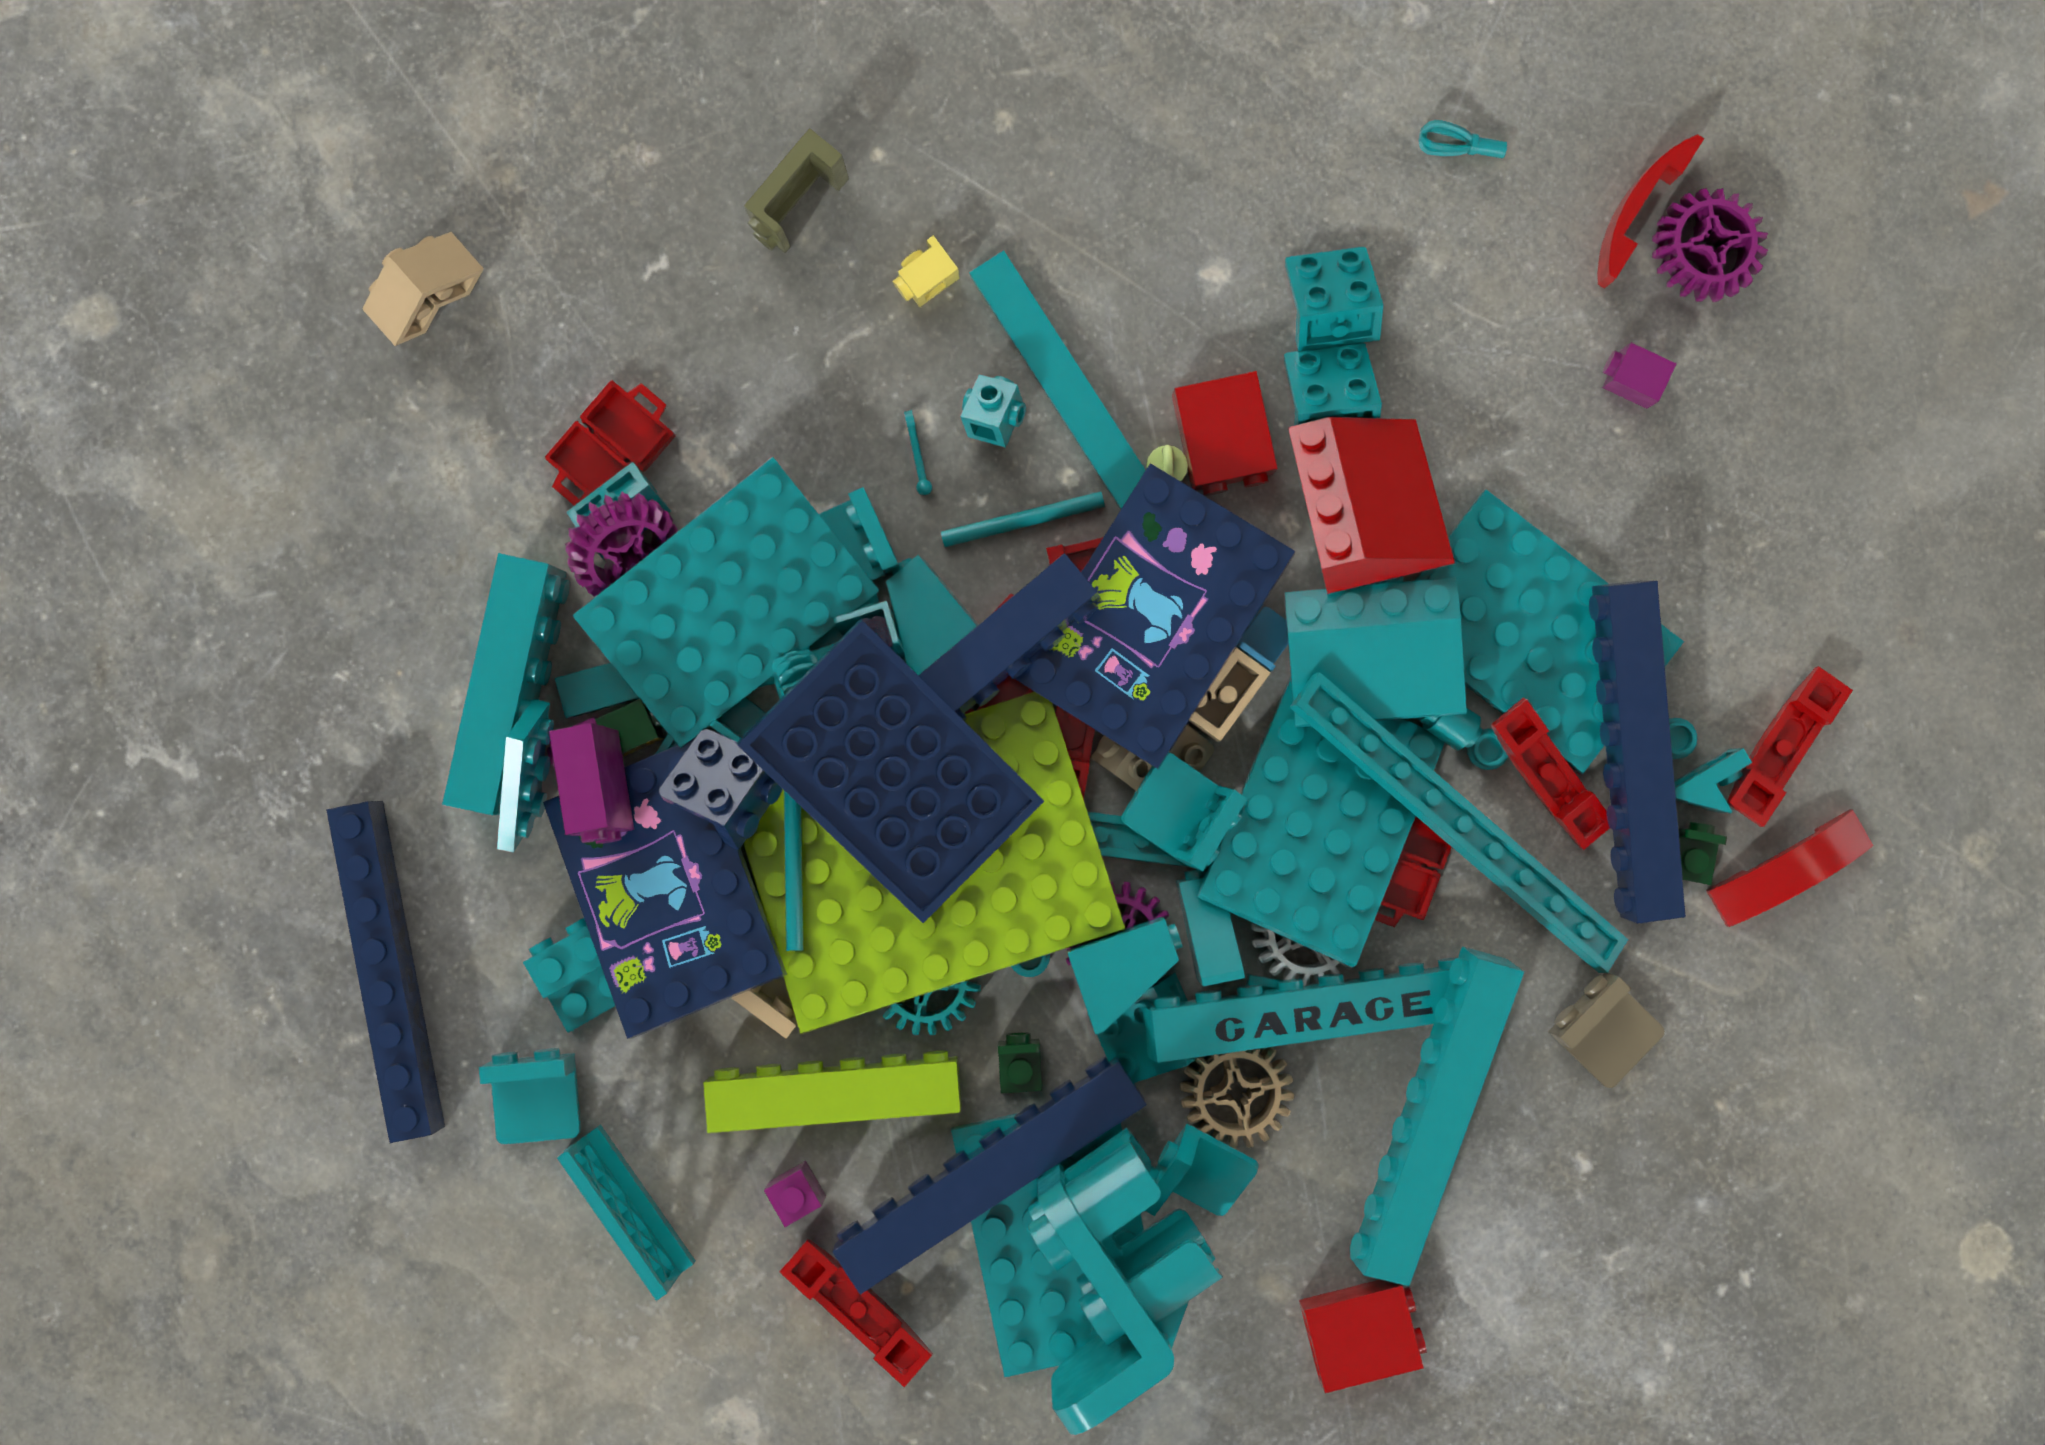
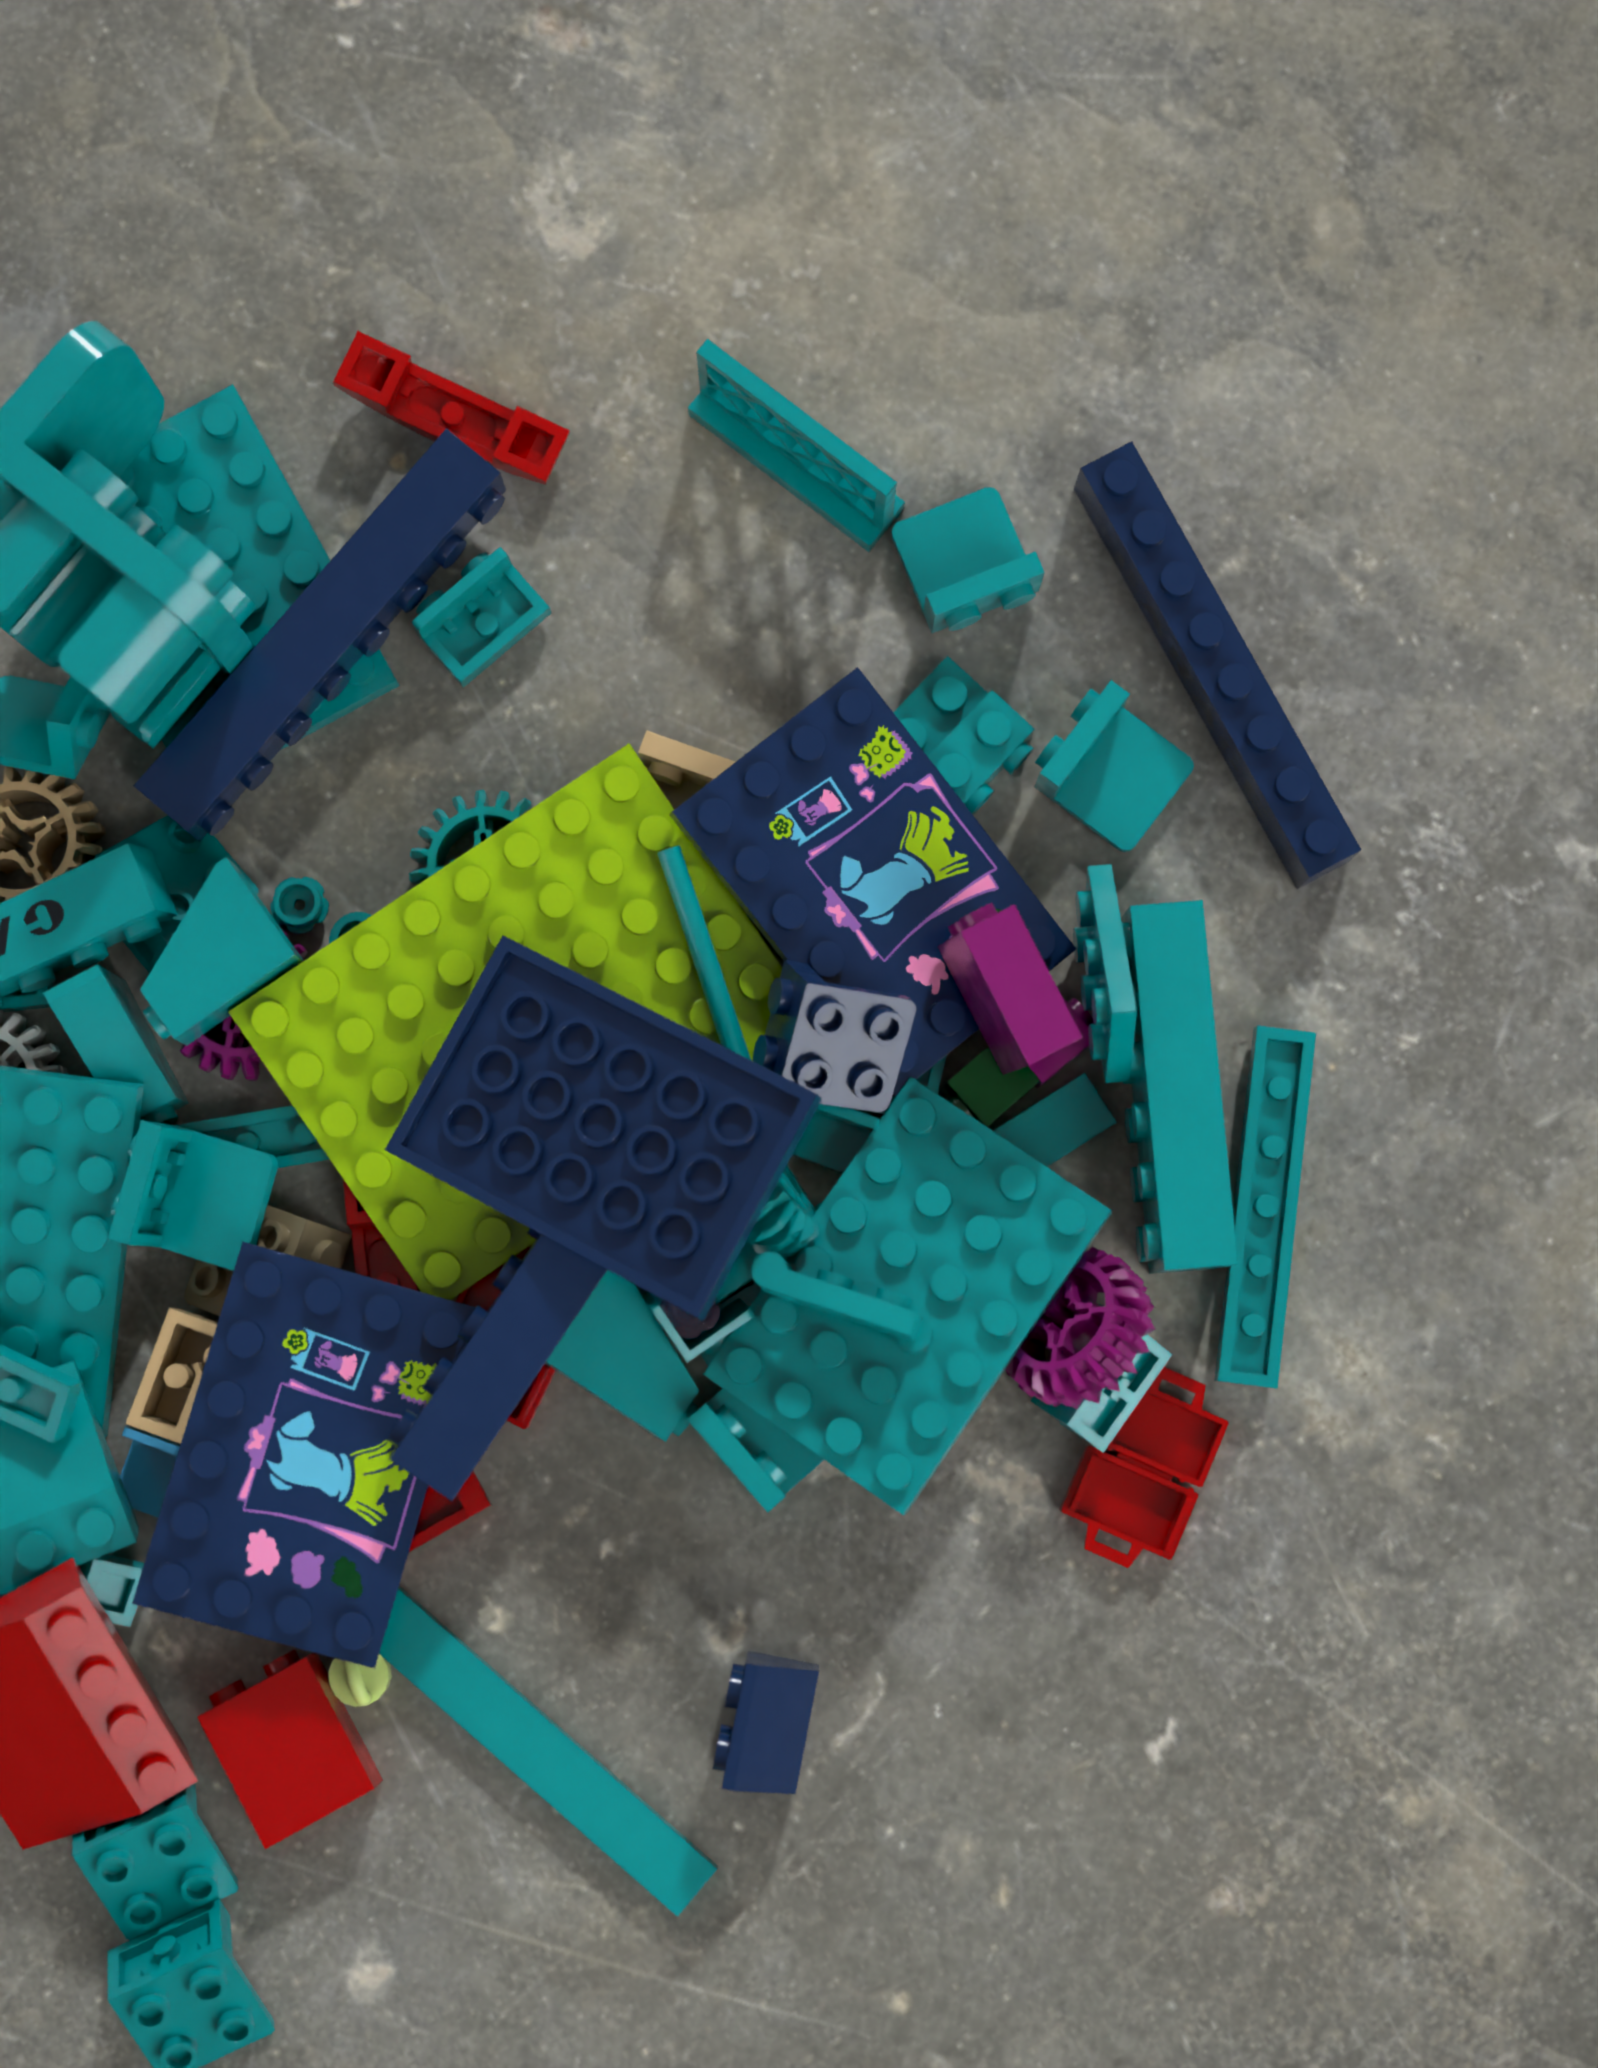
camera: 160 degrees right, 5 degrees down
(418, 284) = (1477, 1611): tan brick -> none
(466, 601) = (1265, 1206): none -> teal plate
(479, 919) = (1112, 769): none -> teal bracket
(772, 612) = (833, 1295): none -> teal plate
(787, 185) = (984, 1967): olive panel -> none
(795, 1193) = (578, 536): magenta brick -> none
(832, 1093) = (567, 681): lime brick -> none
(880, 1157) = (479, 616): none -> teal bracket
(906, 353) = (769, 1726): none -> dark blue slope
(924, 486) = (692, 1543): teal hinge -> none
(926, 273) = (776, 1848): light yellow brick -> none
(992, 410) = (623, 1680): teal brick -> none
(1019, 1063) = (330, 795): dark green bracket -> none
(1022, 519) = (540, 1539): teal bar -> none
(1052, 1000) = (296, 889): none -> teal plate
(1306, 570) = (114, 1584): none -> teal plate

